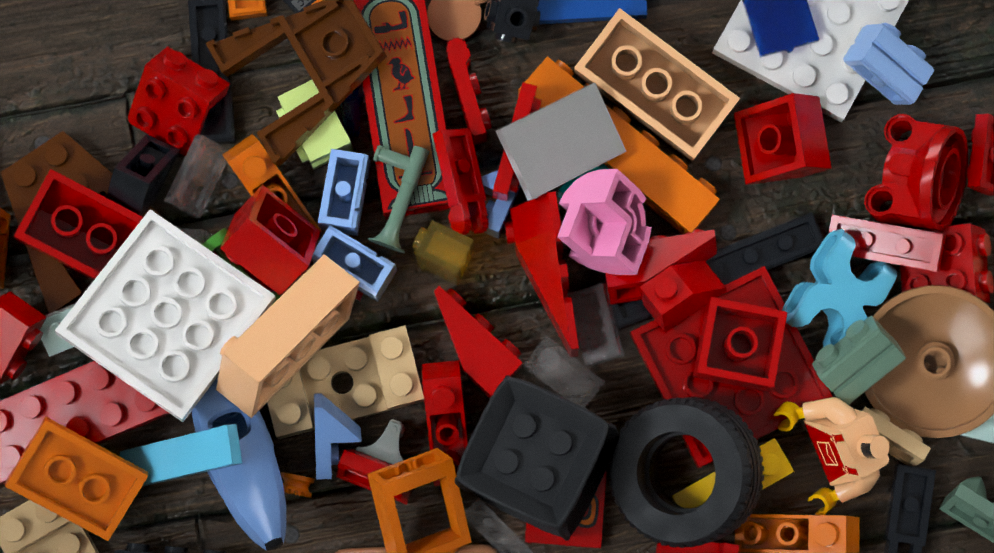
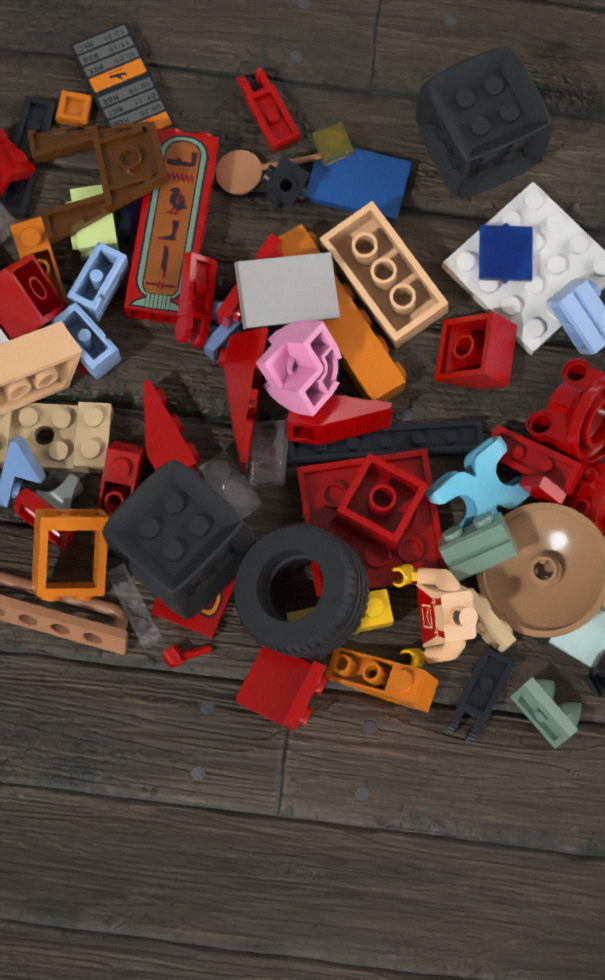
camera: 15 degrees right, 5 degrees down
(413, 169) = (160, 277): sand green piece -> none
(443, 251) = (162, 353): clear yellow brick -> none
(467, 89) = (228, 232): red hinge -> none
(680, 292) = (346, 445): red slope -> none
(907, 274) = (542, 489): none -> red tile

